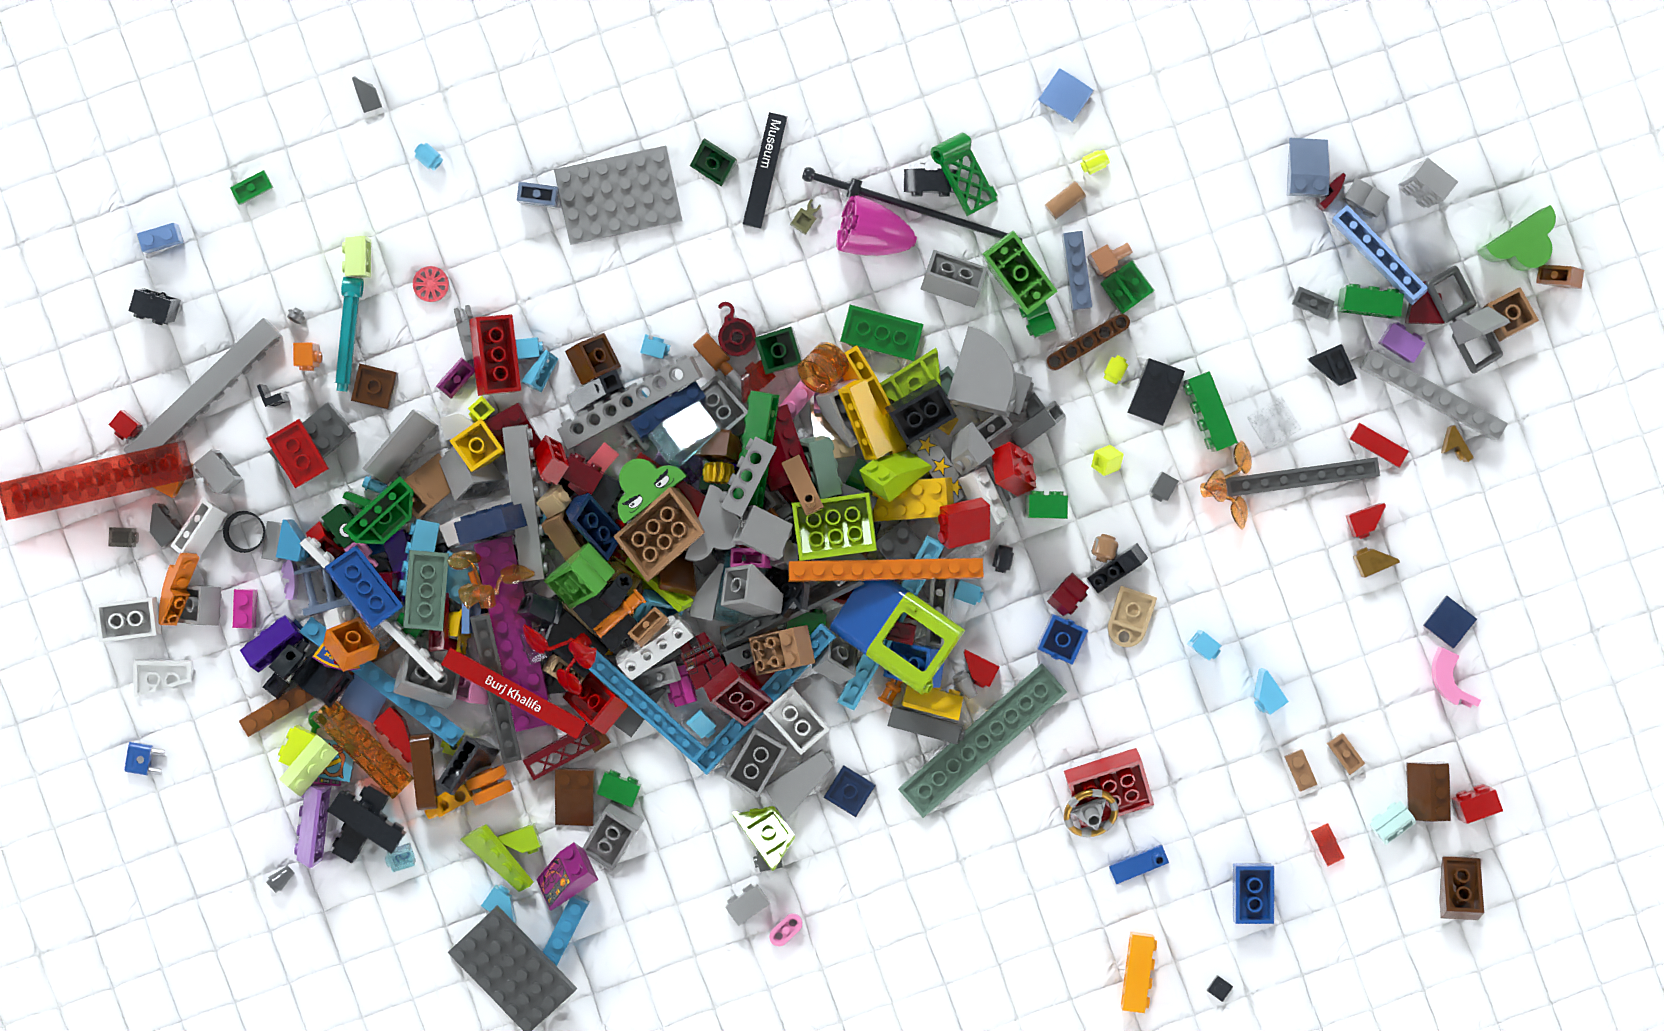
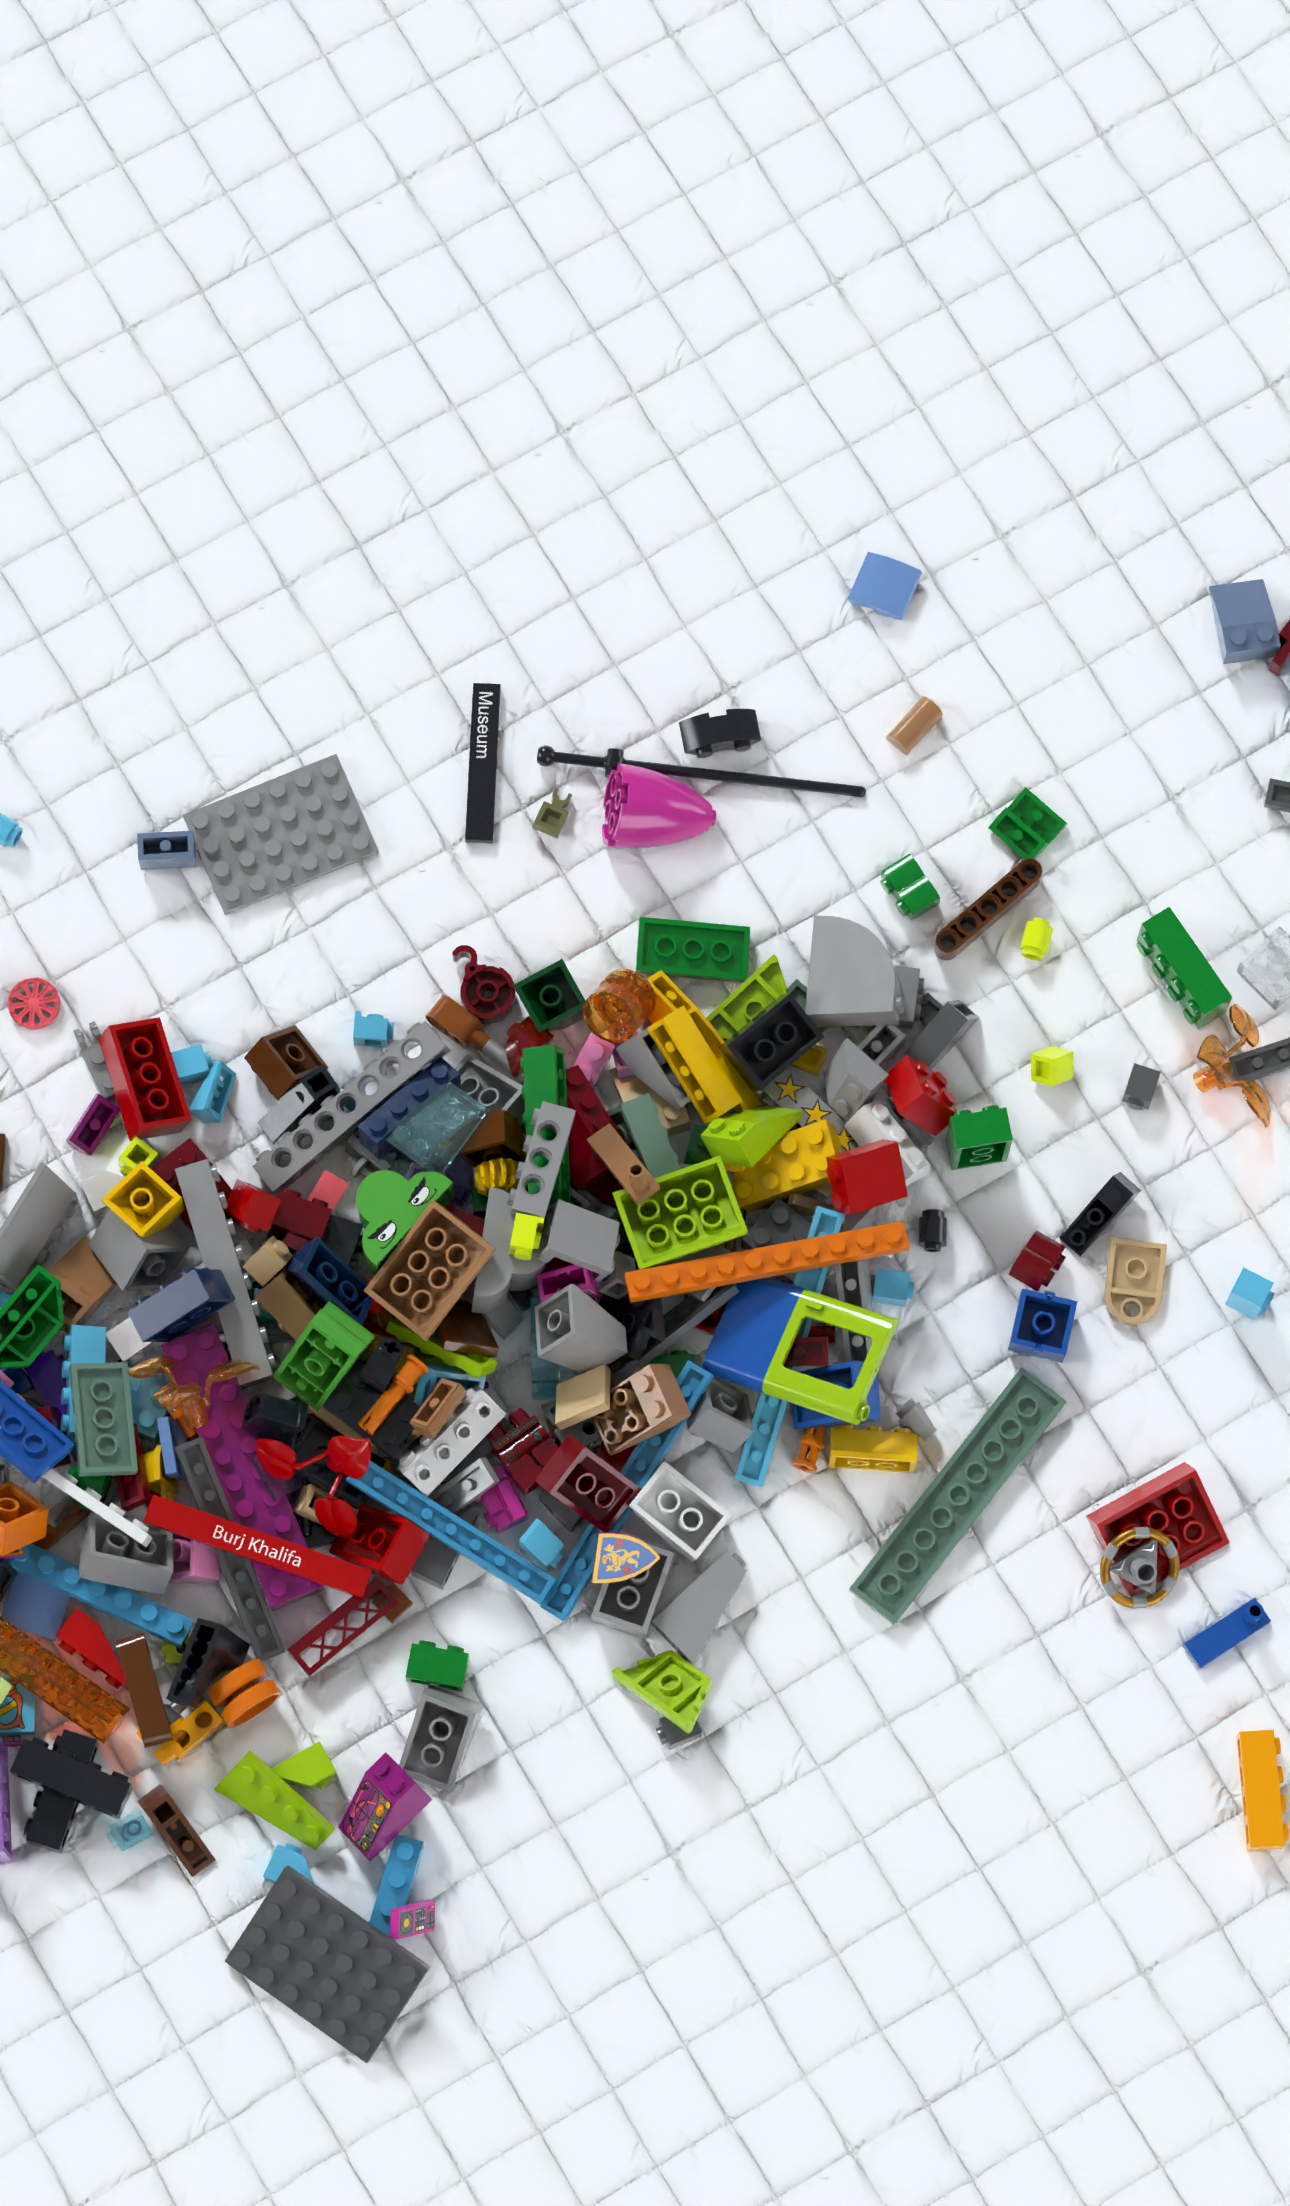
camera: 10 degrees left, 15 degrees down
(430, 861) = (176, 1830): none -> reddish brown slope
(572, 952) = (412, 1919): none -> tile
(574, 796) = (373, 1691): reddish brown slope -> none
(707, 596) = (512, 1369): light grey slope -> none
(713, 162) = (408, 762): dark green slope -> none
(726, 526) = (524, 1235): none -> neon yellow brick
(746, 634) = (583, 1397): none -> tan tile
(747, 903) = (659, 1800): light grey brick -> none
(750, 747) = (621, 1557): none -> shield
(785, 929) = (725, 1829): bright pink plate -> none
(849, 791) = (778, 1607): dark blue tile -> none
(924, 527) = (806, 1205): none -> tan tile
(926, 725) = (870, 1483): dark grey slope -> none
(954, 278) = (779, 858): light grey slope -> none
(956, 149) = (745, 685): green piece -> none
(980, 669) = (933, 1391): red slope -> none
(1018, 273) = (868, 825): bright green brick -> none
(1076, 270) = (951, 814): sand blue brick -> none
(1094, 162) = (944, 665): neon yellow brick -> none
(1105, 259) = (987, 789): nougat brick -> none
(1105, 548) = (1076, 1187): medium nougat head -> none
(1155, 391) = (1100, 958): black slope -> none

